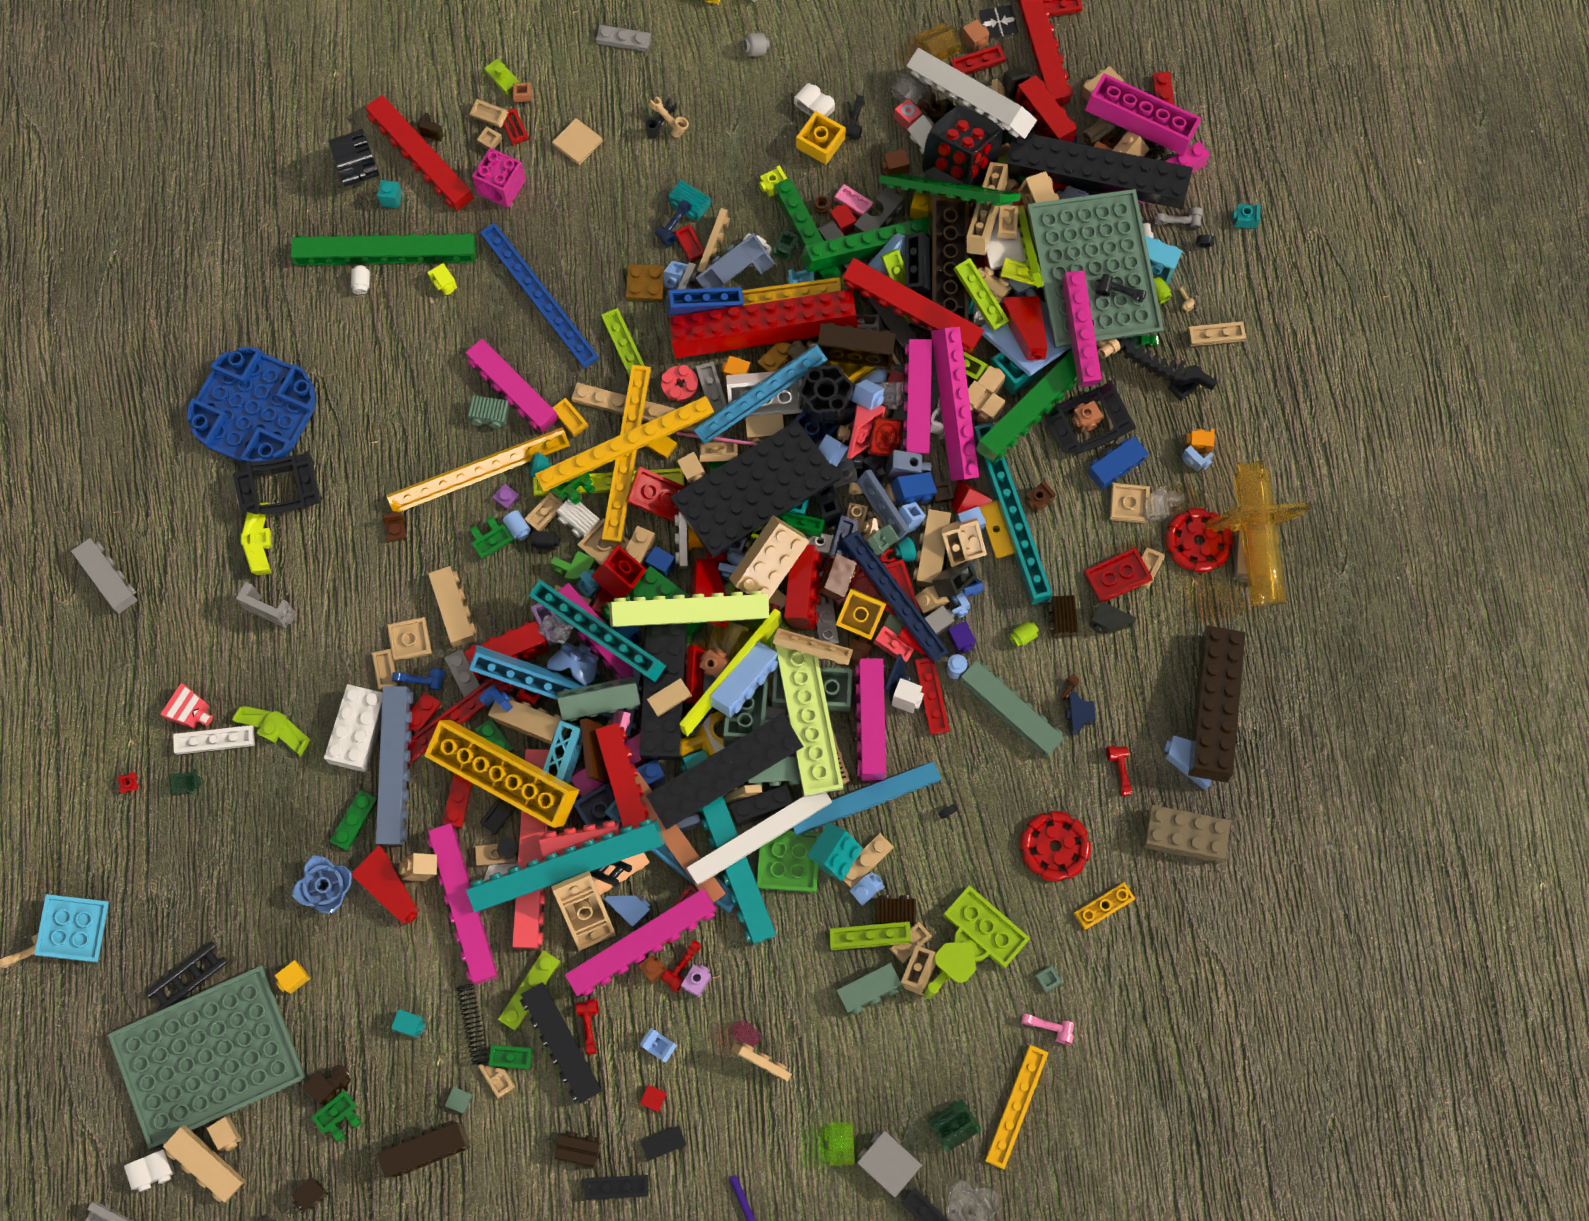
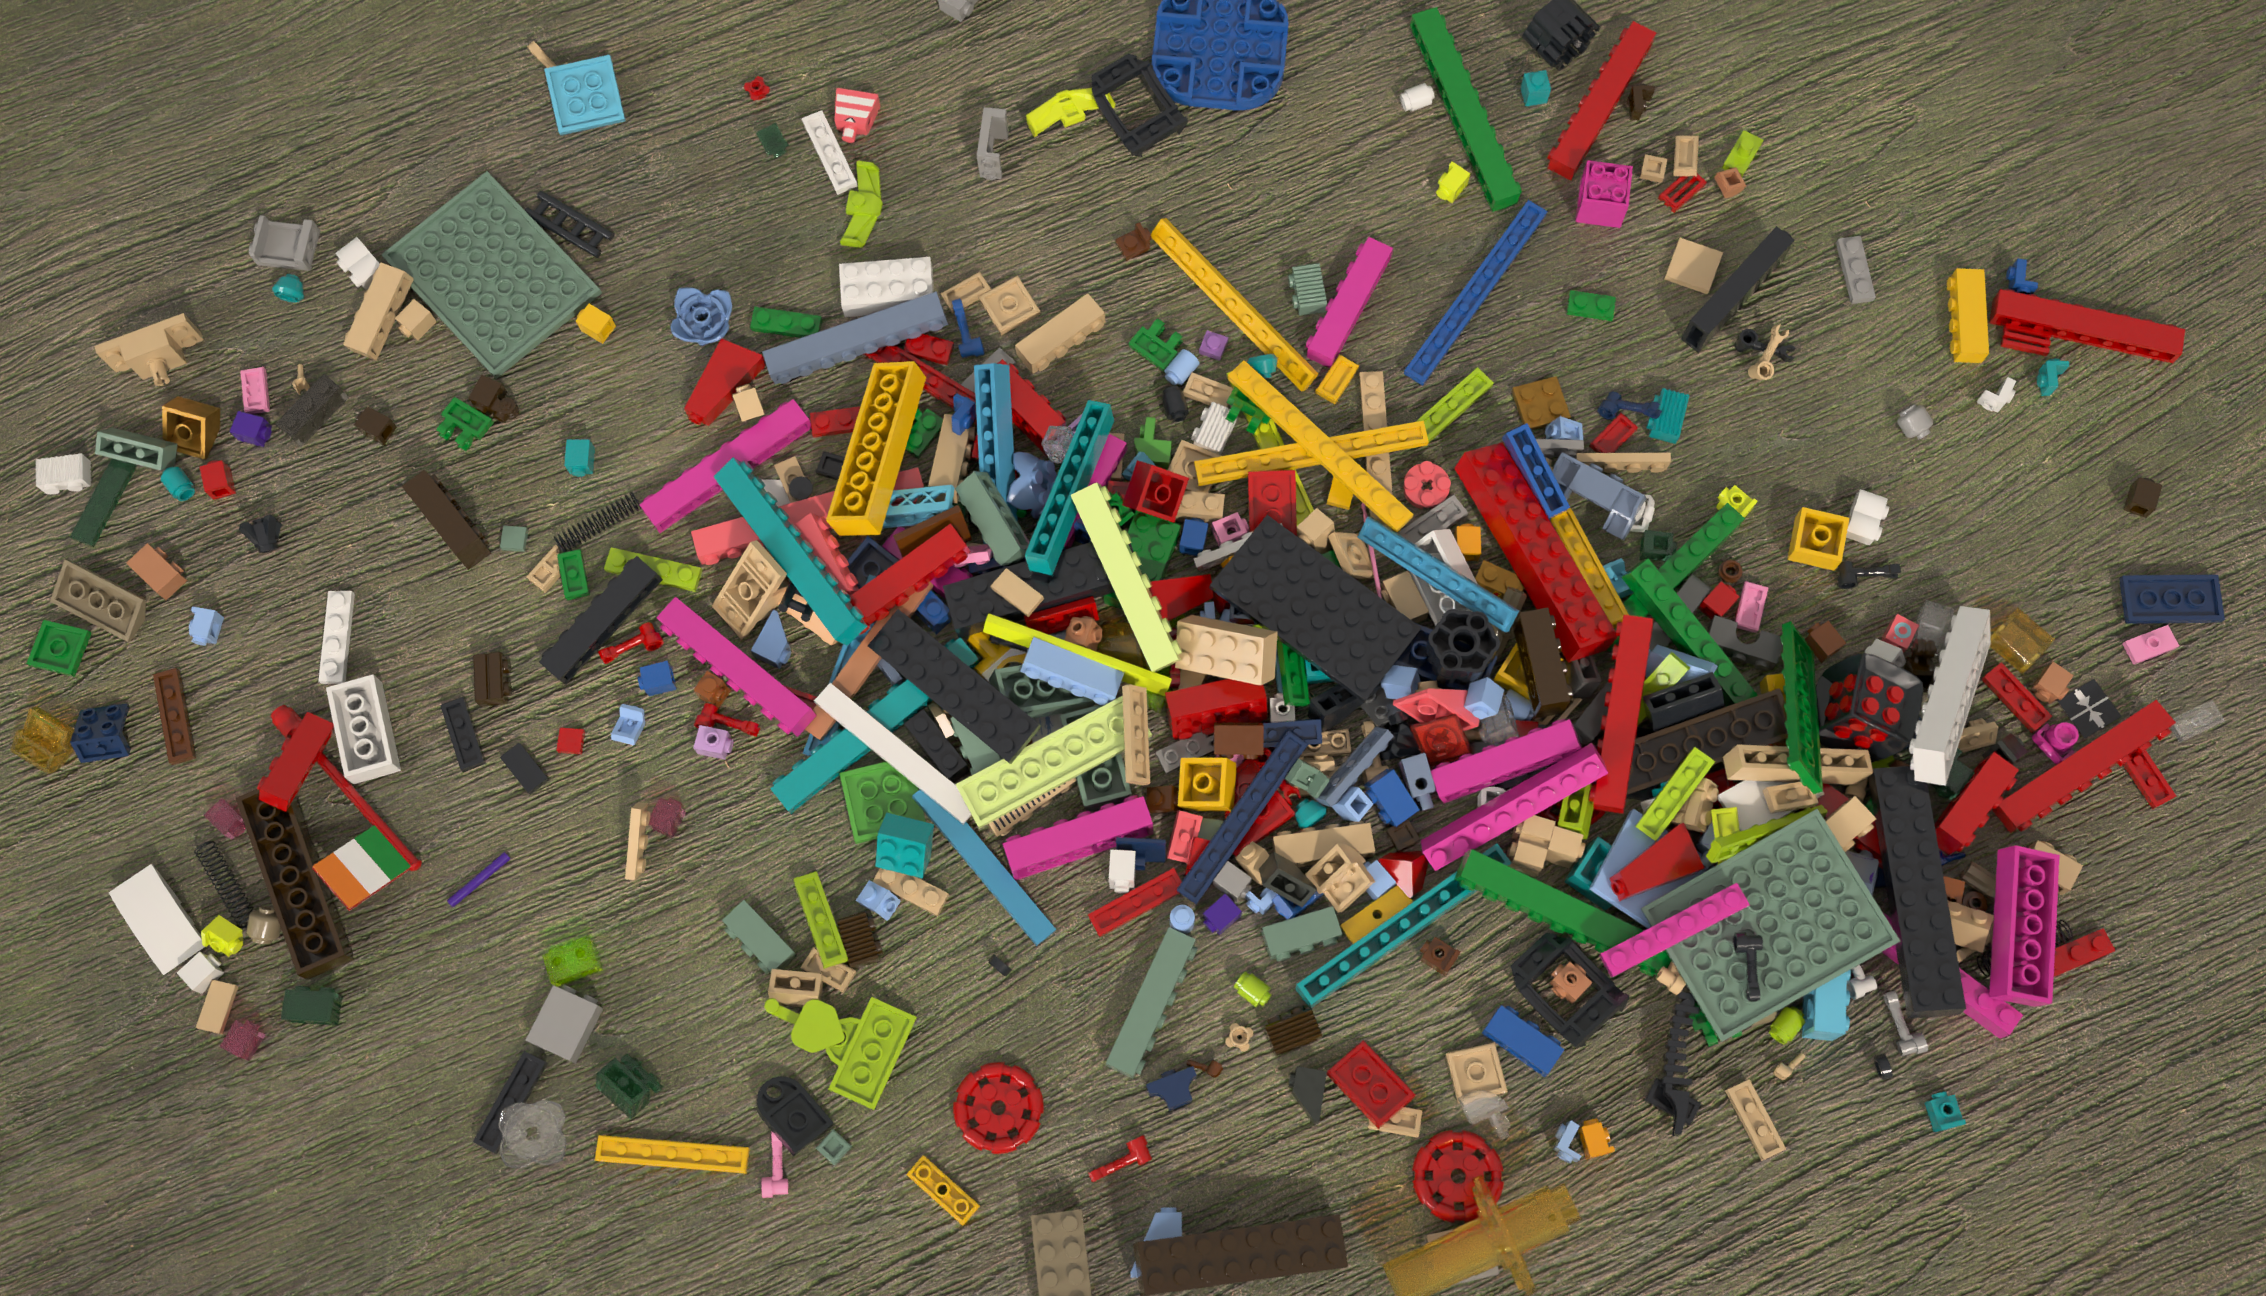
camera: 75 degrees right, 0 degrees up
(581, 221) = (1591, 305): none -> green plate
(612, 117) = (1737, 289): none -> black brick
(626, 1011) = (657, 678): none -> blue brick
(664, 541) = (1231, 522): none -> bright pink brick
(995, 587) = (1302, 934): none -> sand green brick
(1015, 1001) = (792, 1115): none -> black tile
(1016, 47) = (2057, 740): none -> dark pink piece
(1054, 650) = (1236, 1030): none -> tan plate

